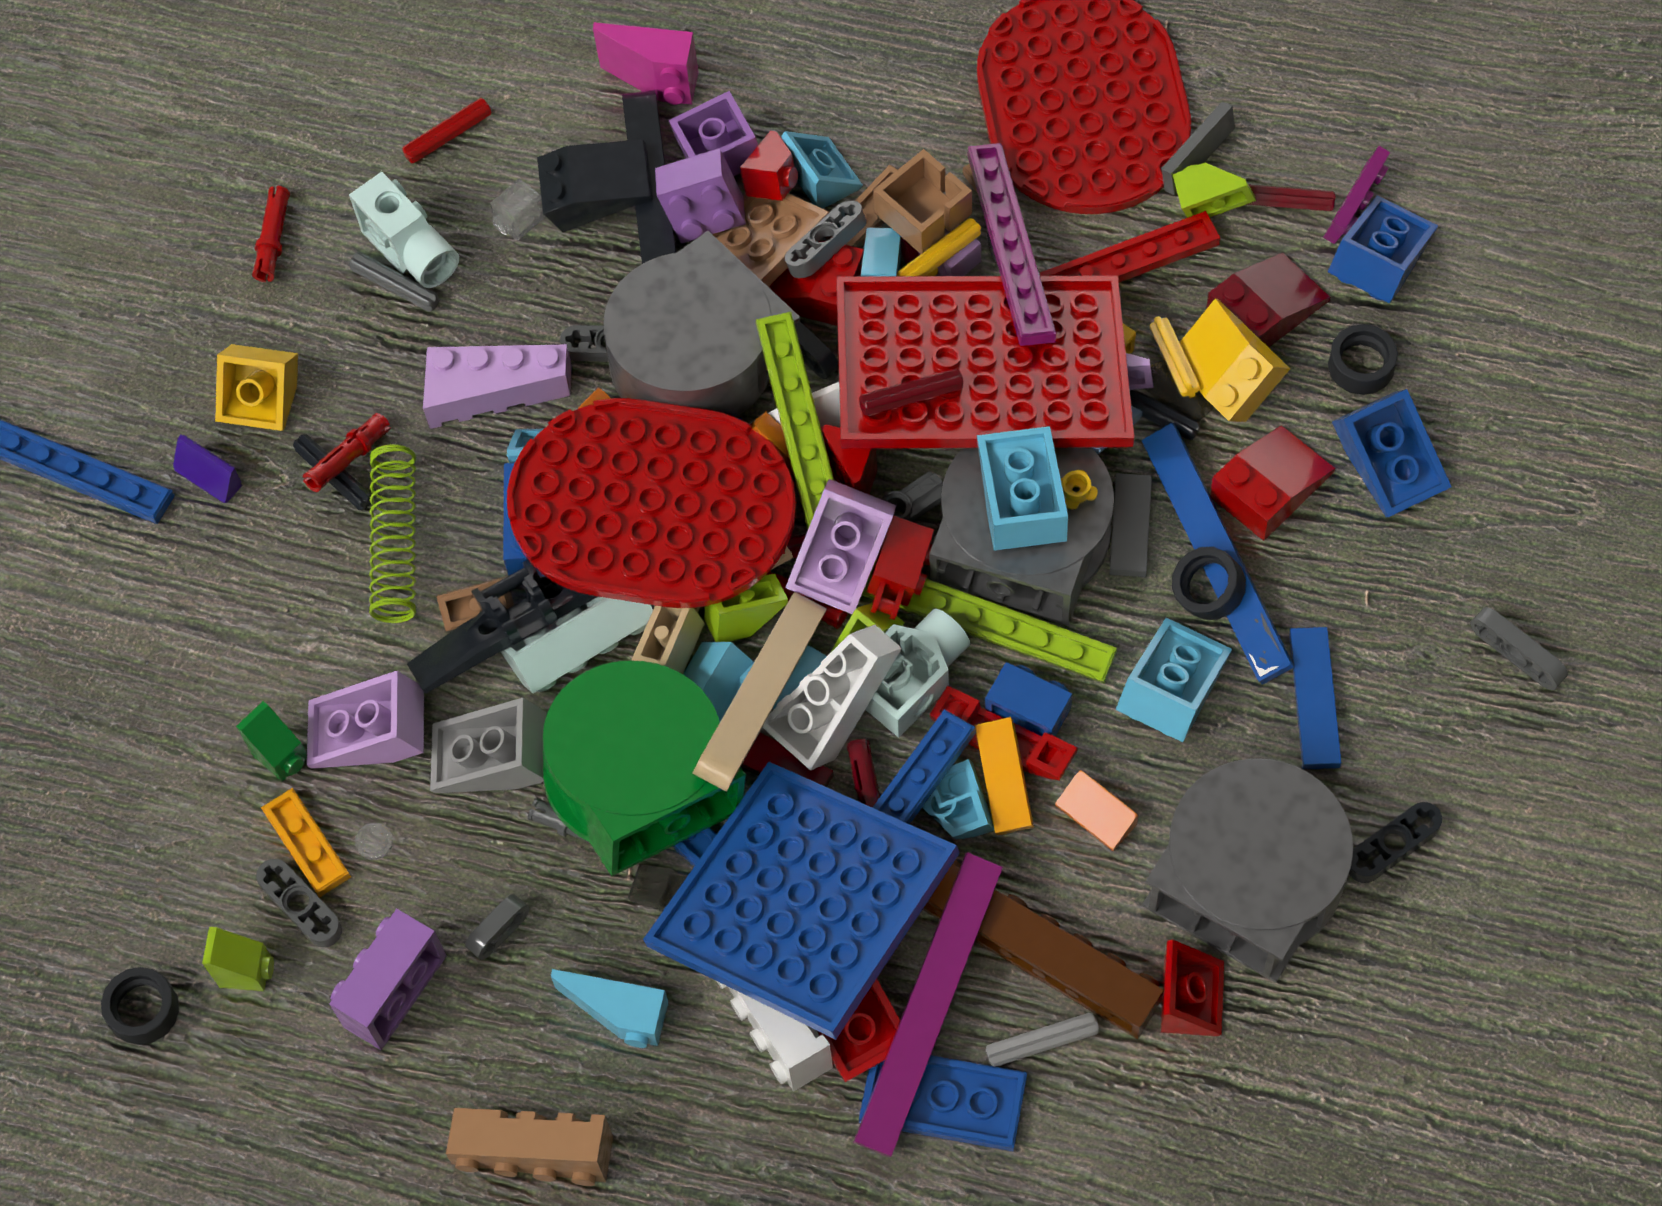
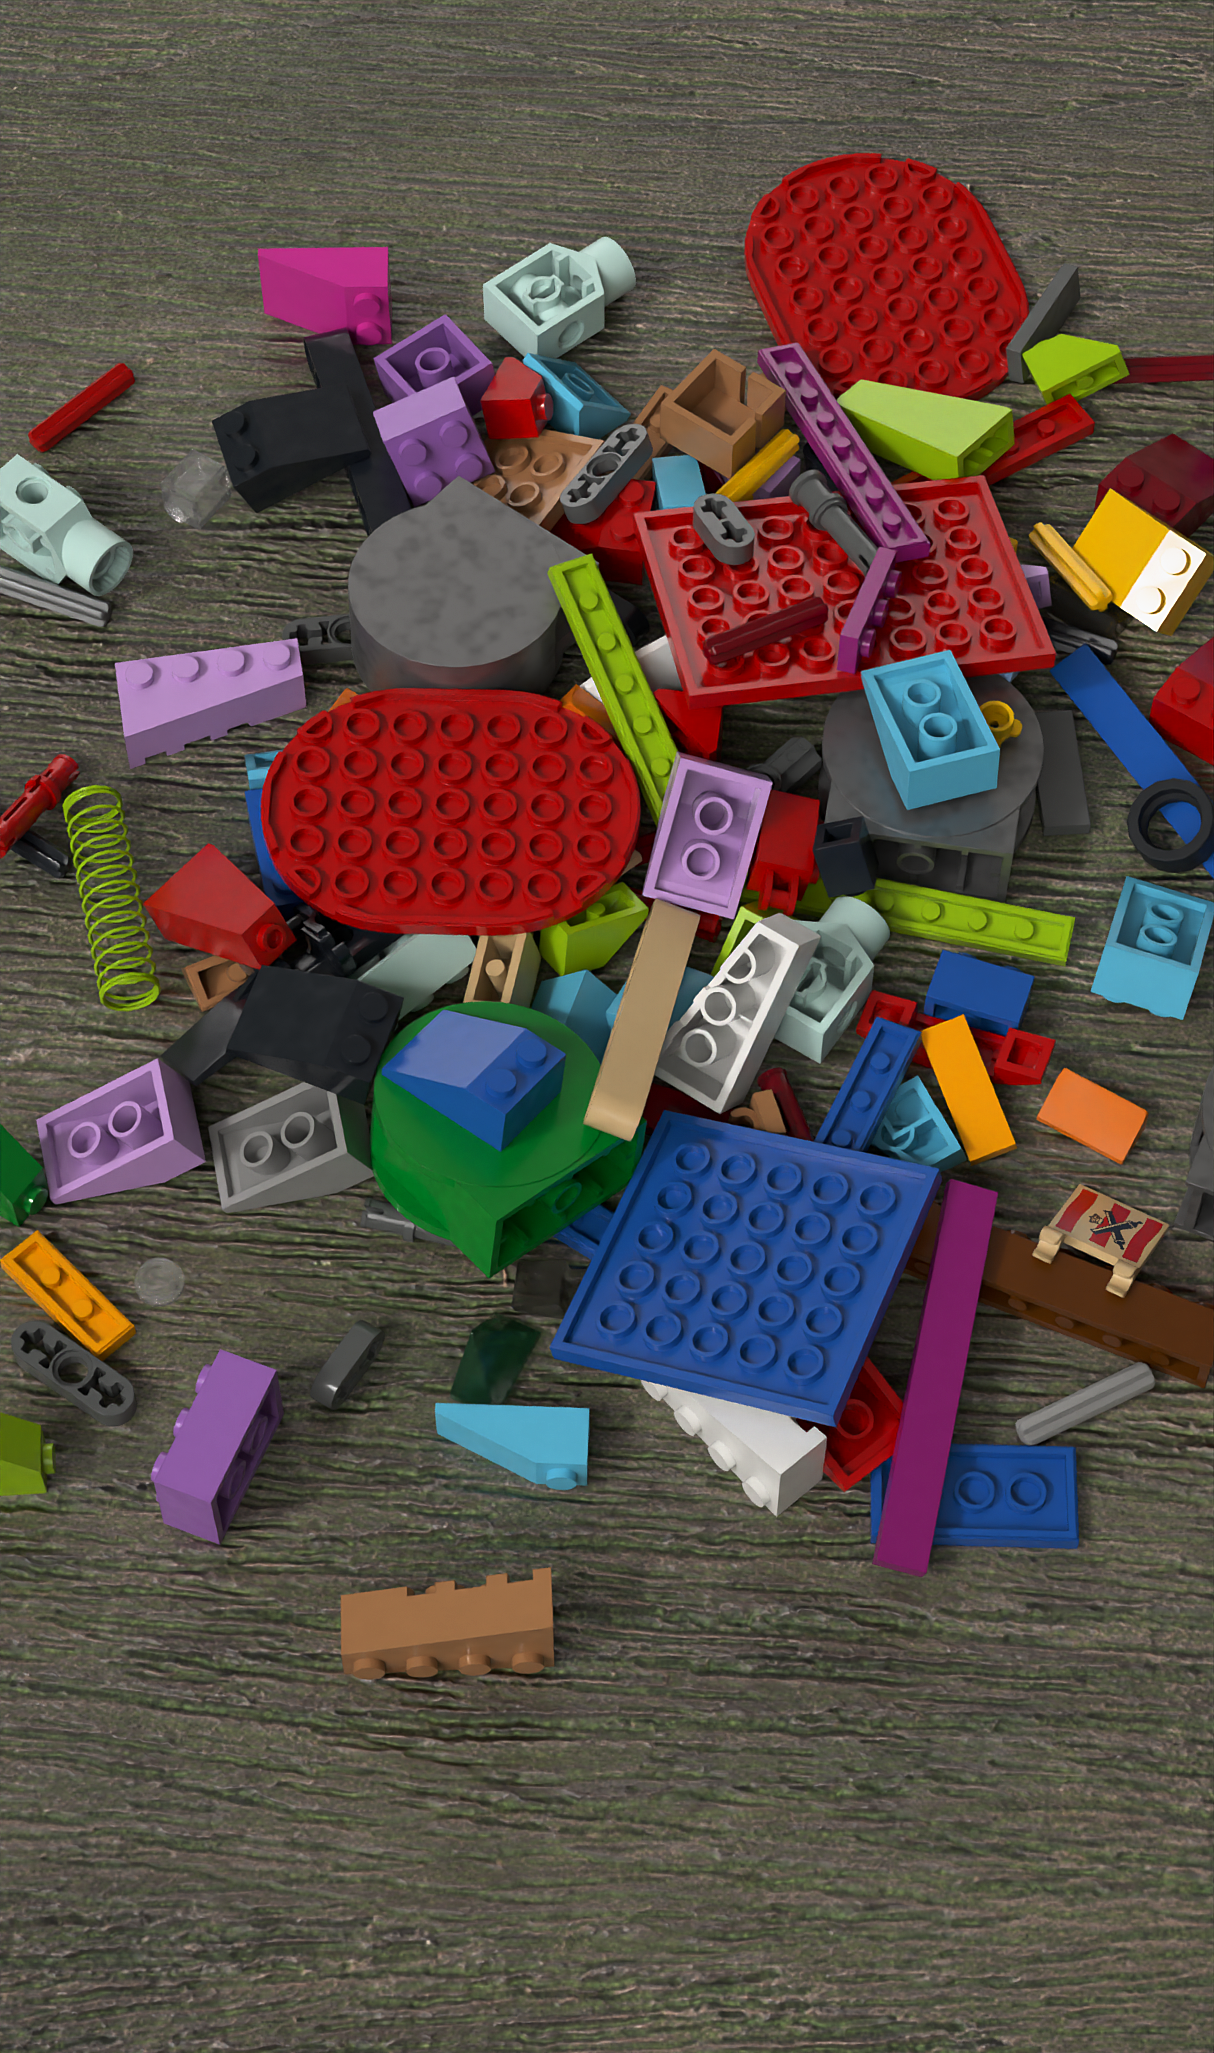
camera: 15 degrees left, 5 degrees down
(467, 558) = (219, 912): none -> red slope
(513, 666) = (317, 1029): none -> black slope
(606, 939) = (493, 1360): none -> clear green slope
(623, 722) = (480, 1074): none -> blue slope
(822, 83) = (557, 296): none -> light aqua brick
(841, 776) = (761, 1114): none -> medium nougat tile
(907, 298) = (733, 525): none -> dark grey beam
(941, 580) = (845, 857): none -> black brick
(985, 297) = (829, 514): none -> dark grey pin
(993, 386) = (869, 610): none -> magenta plate
(1084, 231) = (928, 430): none -> lime slope
(1085, 906) = (1103, 1231): none -> tan flag

